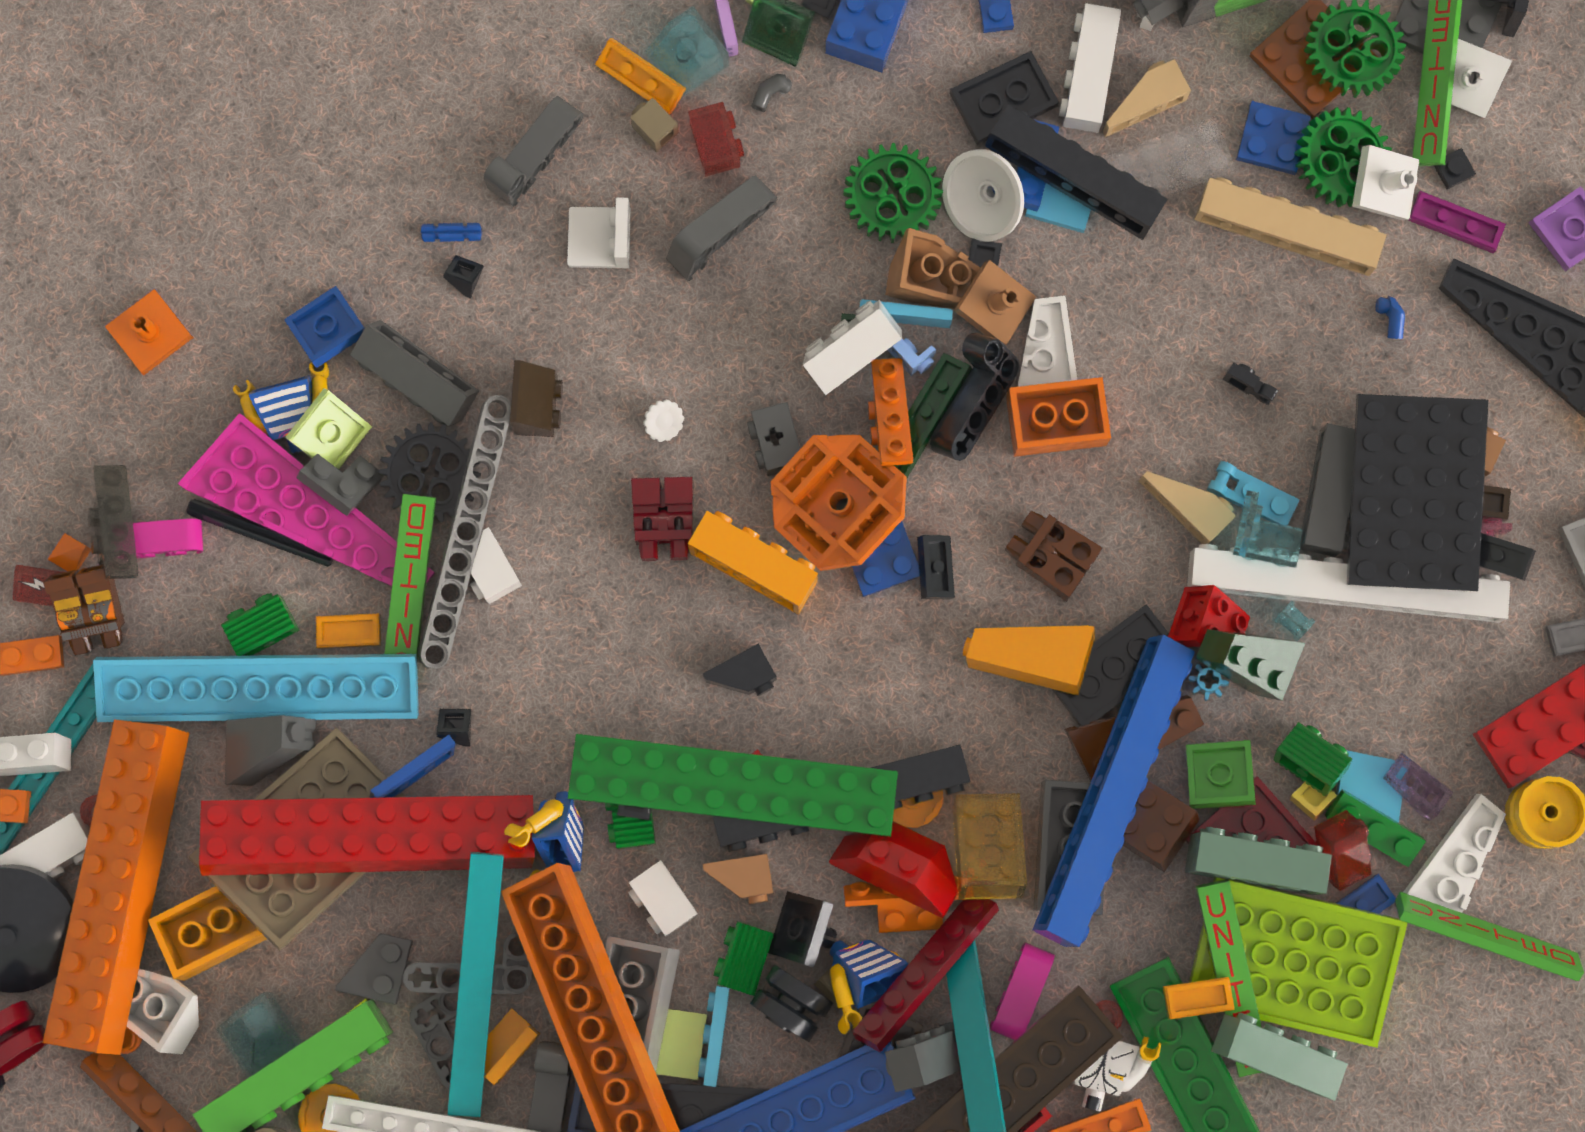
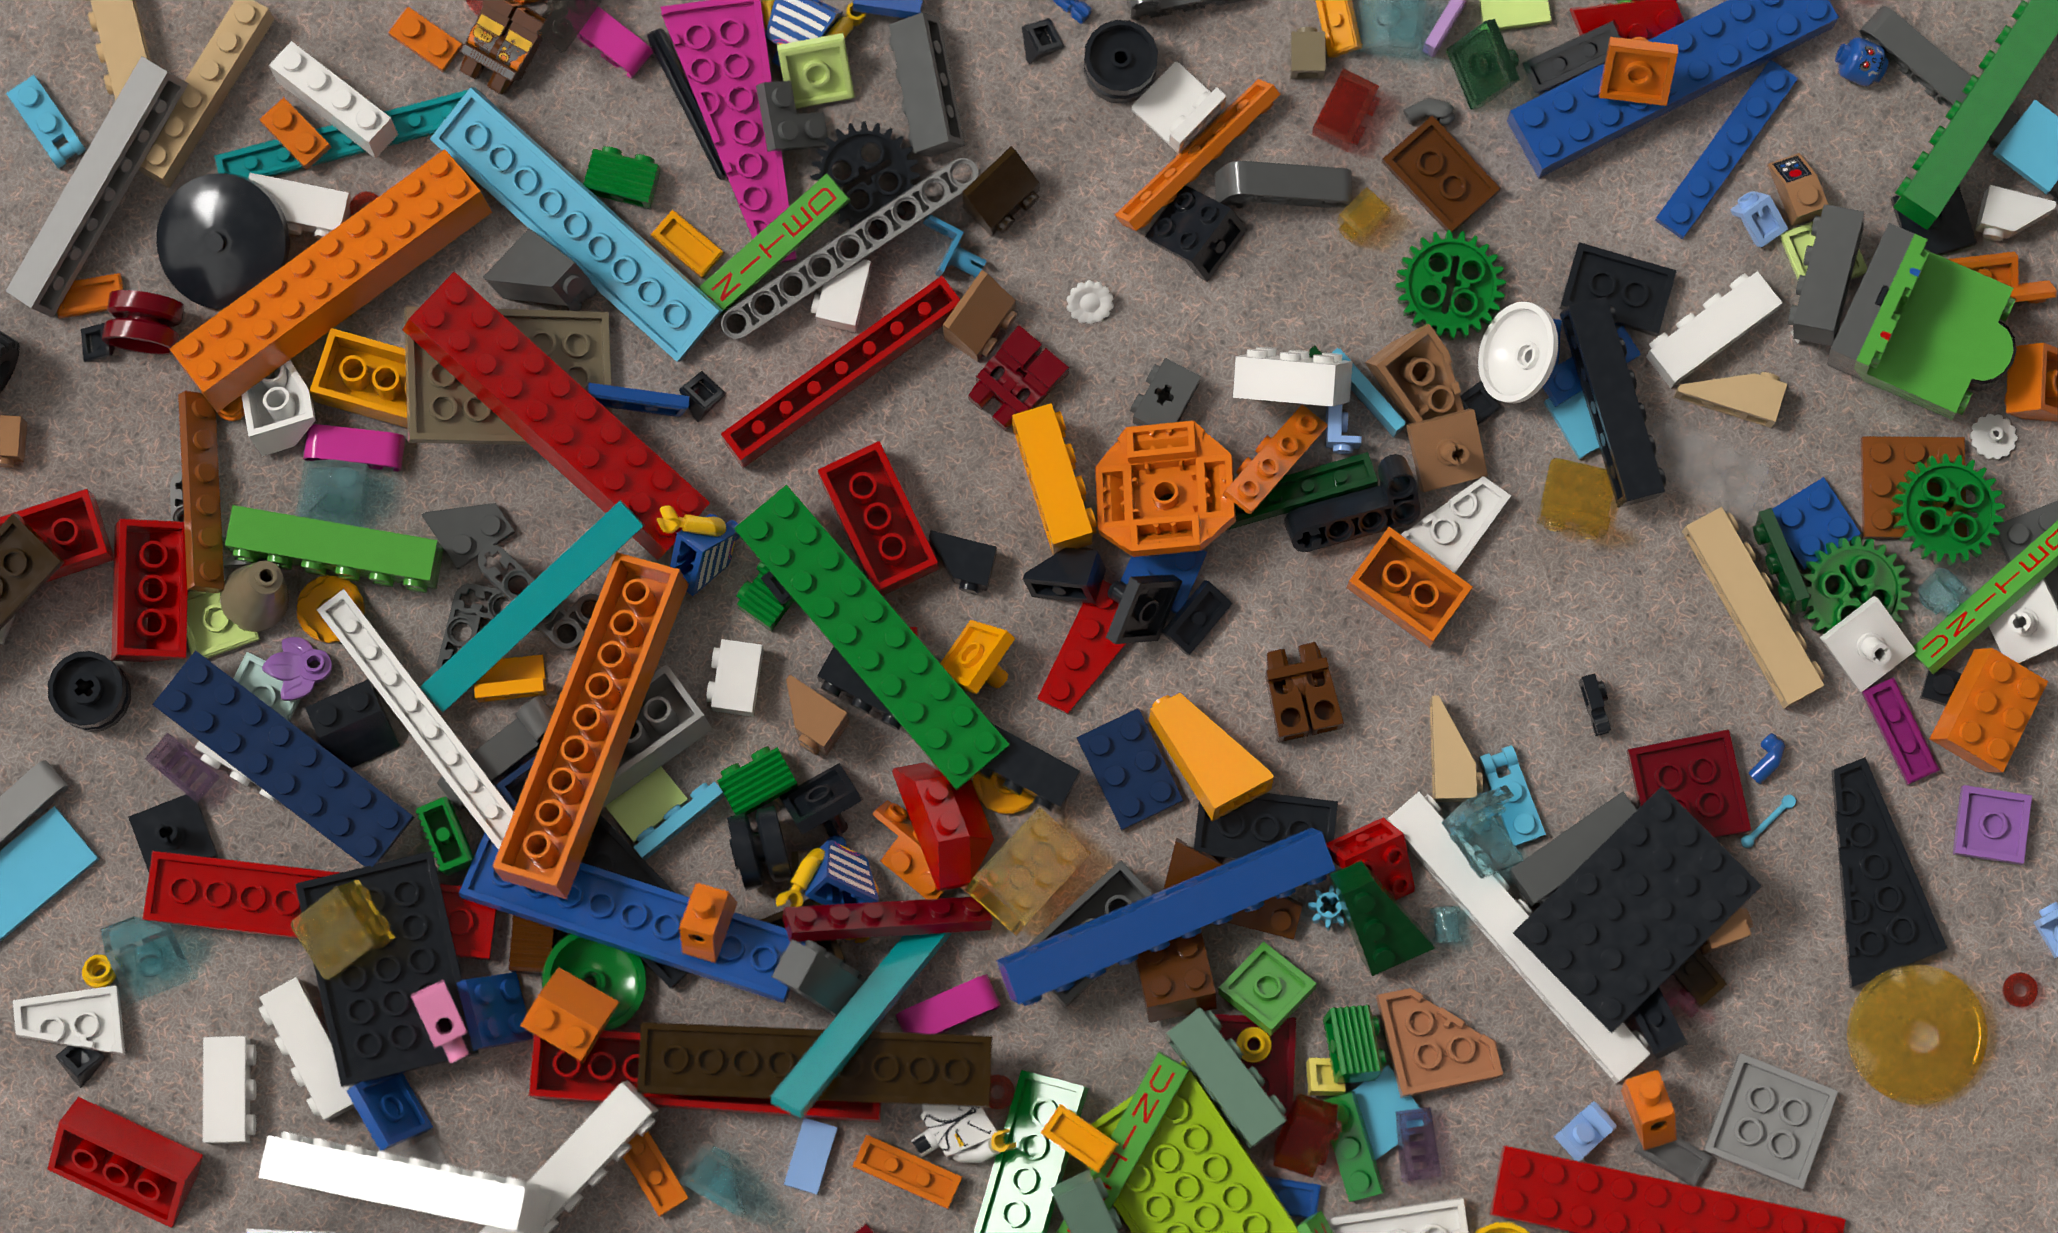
camera: 45 degrees right, 0 degrees up
(242, 986) = (355, 445): none -> dark pink beam
(537, 257) = (1118, 81): none -> black wheel
(539, 621) = (840, 372): none -> red brick
(540, 471) = (955, 254): none -> dark azure bracket
(599, 497) = (980, 317): none -> medium nougat slope
(643, 256) = (1203, 149): none -> orange plate
(658, 699) = (878, 519): none -> red brick
(690, 307) = (1197, 231): none -> black bracket
(792, 199) = (1362, 217): none -> clear yellow brick
(810, 1094) = (709, 917): none -> orange torso
(815, 730) = (976, 656): none -> light orange tile
(817, 126) = (1441, 175): none -> reddish brown plate
(824, 619) = (1067, 576): none -> black slope
(879, 639) = (1082, 655): none -> red wing
(897, 594) = (1142, 607): none -> black tile
(987, 711) = (1129, 769): none -> dark blue plate
(1109, 259) = (1576, 499): none -> clear yellow bracket
(1239, 820) = (1265, 1044): none -> yellow plate
(1281, 178) = (1780, 561): none -> dark green plate
(1358, 366) = (1699, 775): none -> dark red plate
(1362, 709) = (1433, 1046): none -> nougat plate
(1398, 107) = (1941, 592): none -> clear light blue plate
(1430, 333) = (1787, 802): none -> medium azure hinge
(1503, 155) = (1988, 710): none -> orange brick
(1514, 673) = (1585, 1131): none -> light blue bracket
(1544, 618) = (1647, 1105): none -> orange torso

